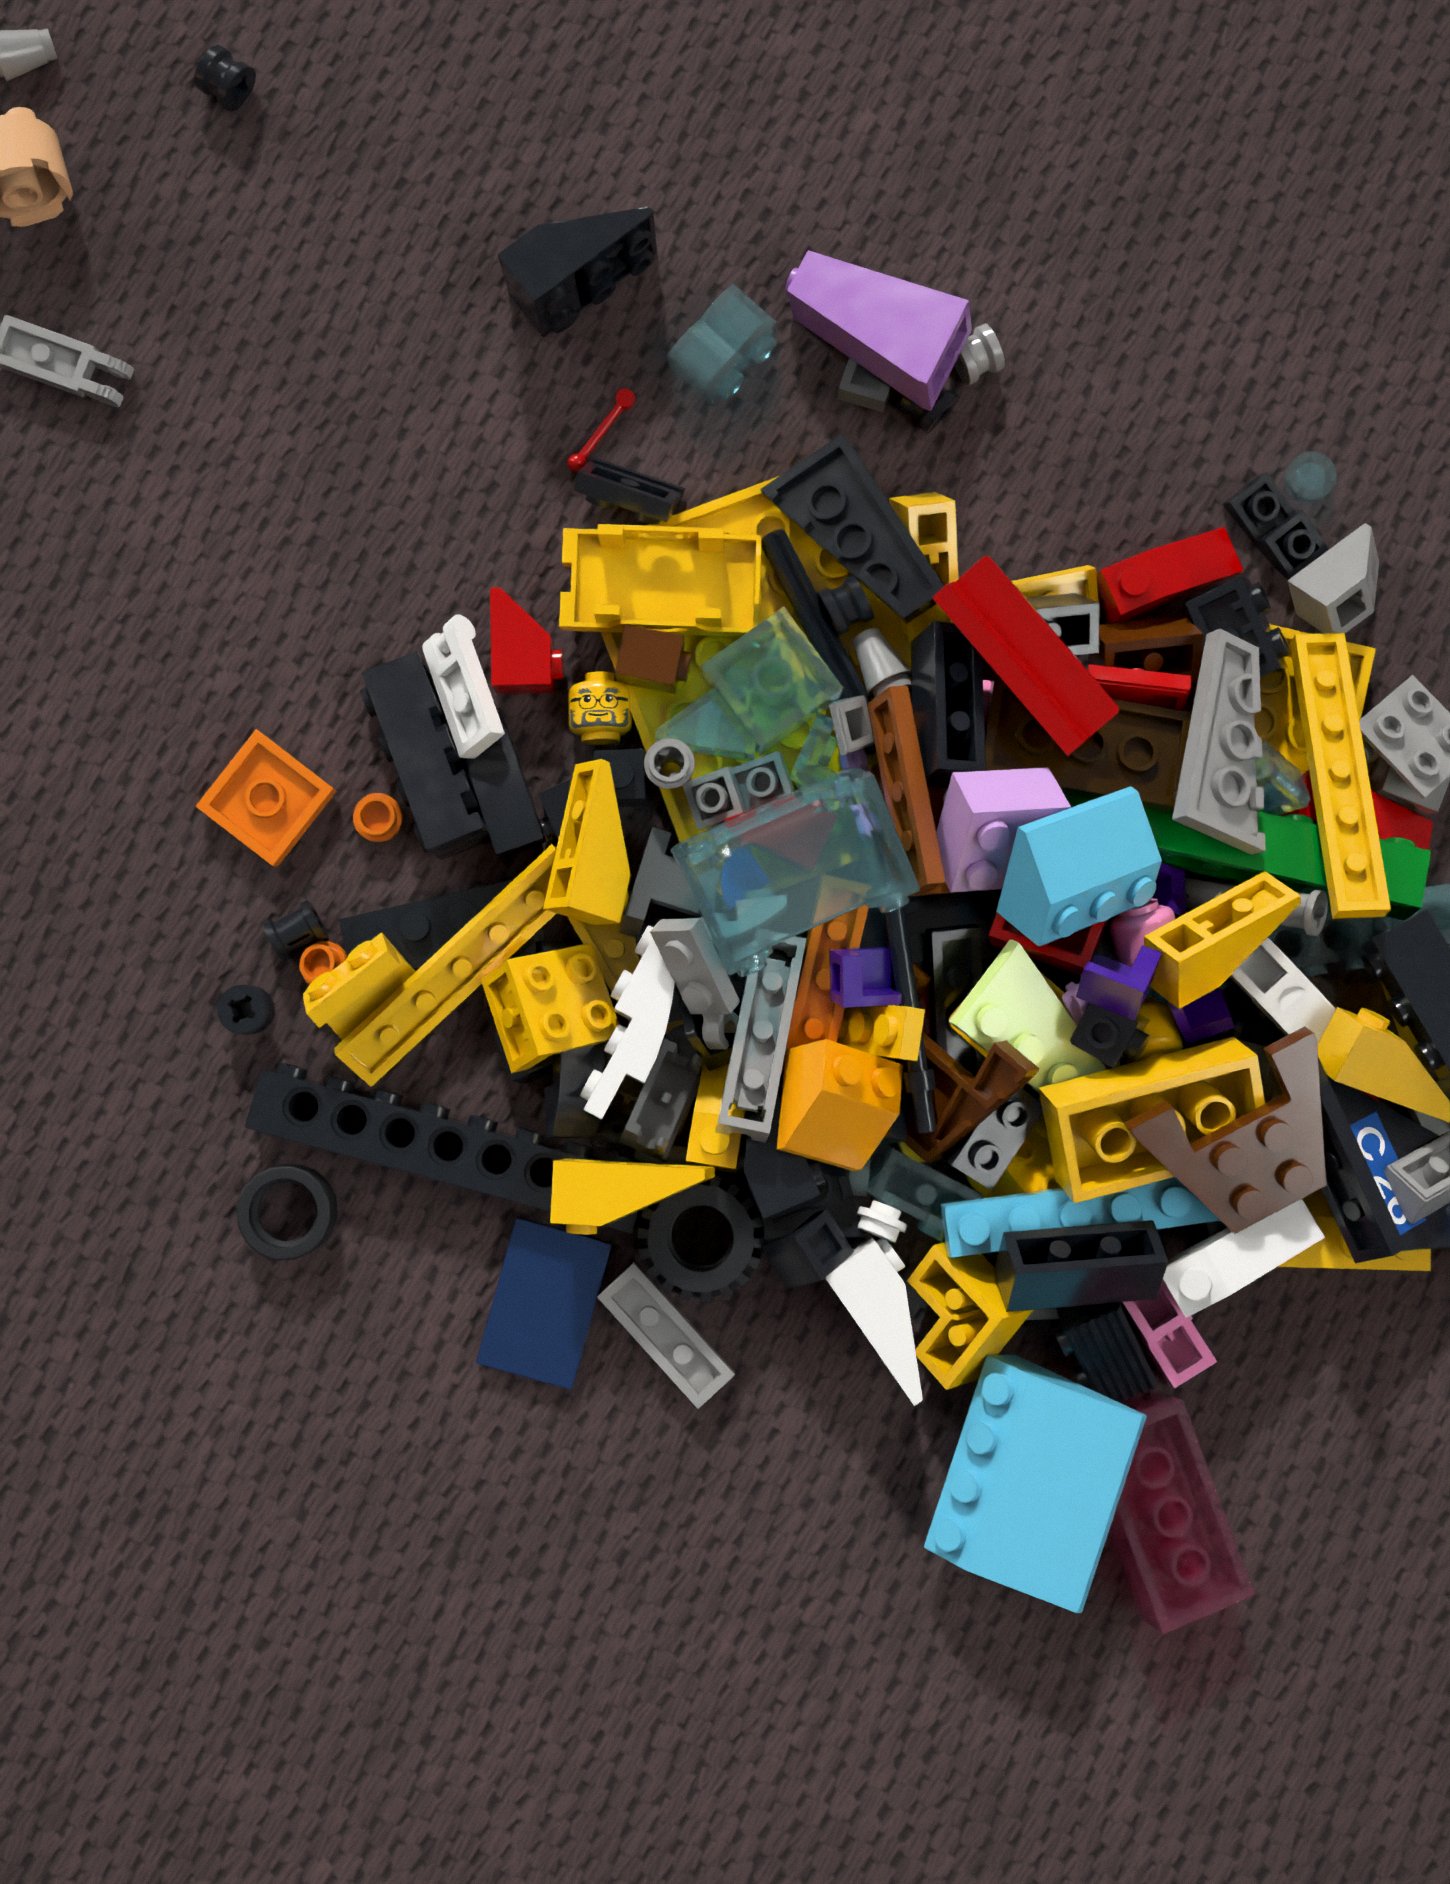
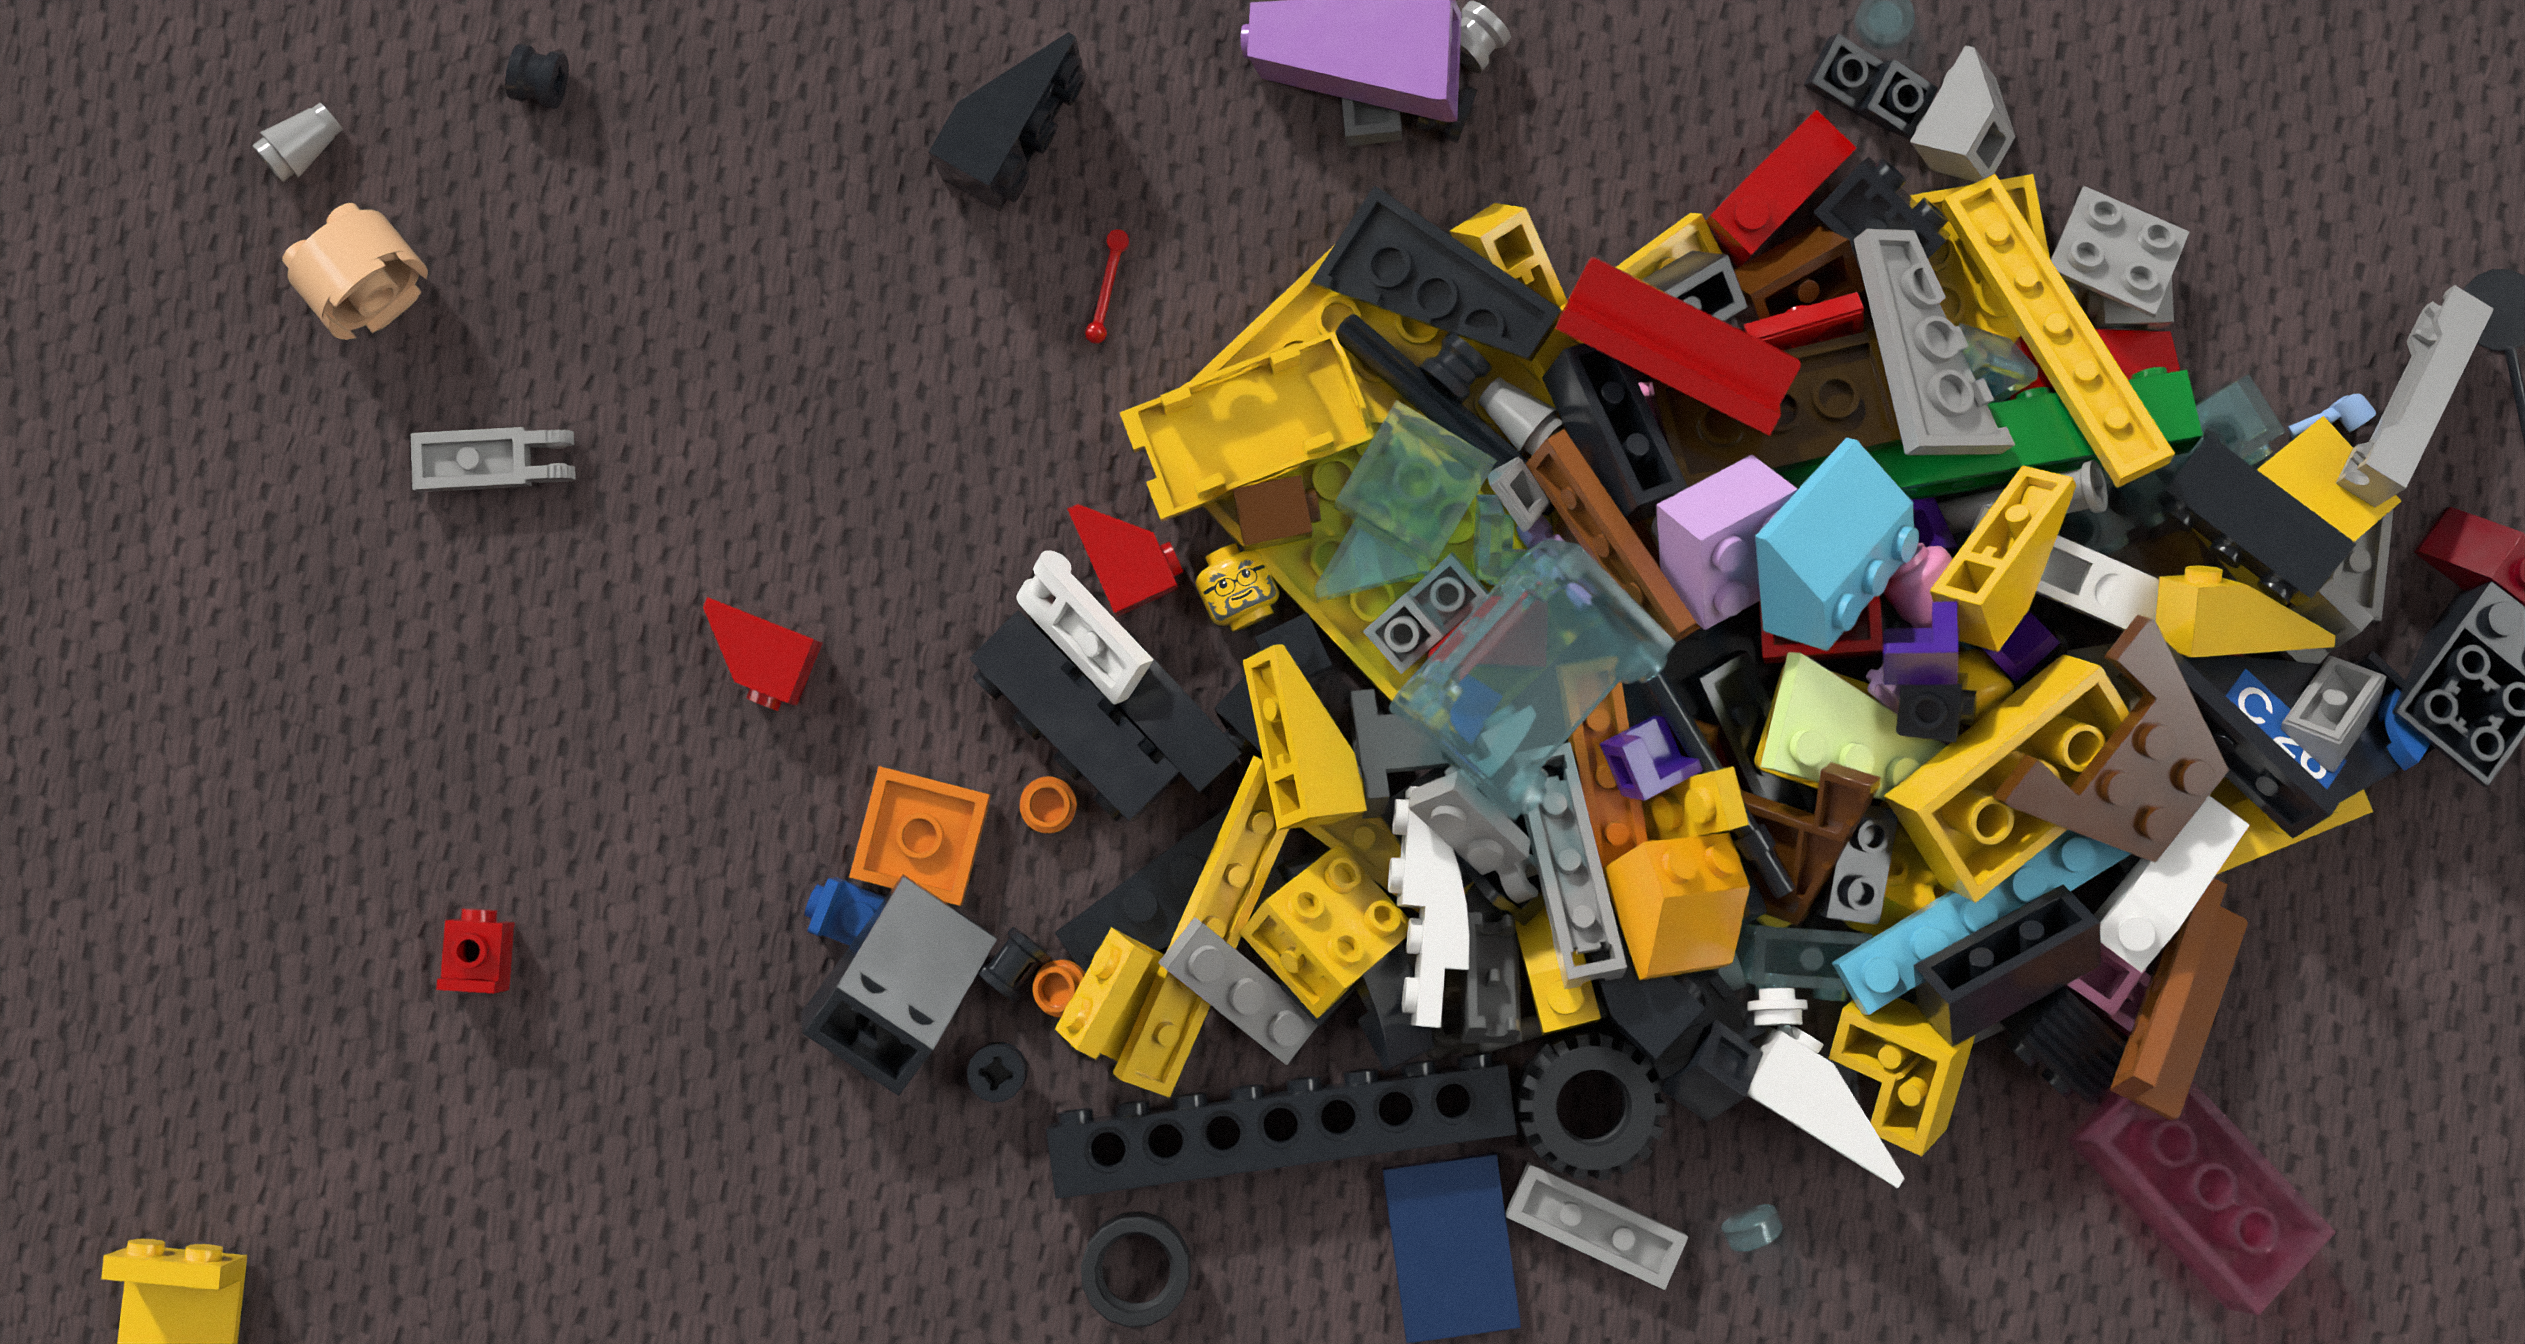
camera: 25 degrees left, 0 degrees up
(184, 836) = (840, 909): none -> blue bracket
(194, 906) = (897, 985): none -> slope
(203, 603) = (762, 654): none -> red slope
(460, 1025) = (1238, 990): none -> light grey plate
(605, 1191) = (1475, 1100): yellow slope -> none
(644, 495) = (1155, 340): black plate -> none
(669, 751) = (1345, 601): light grey cone -> none
(723, 345) = (1200, 140): clear light blue brick -> none
(789, 1390) = (1752, 1228): none -> clear light blue tile
(1035, 1481) = (2056, 1212): medium azure slope -> none
(1209, 1358) = (2180, 1006): none -> dark orange panel

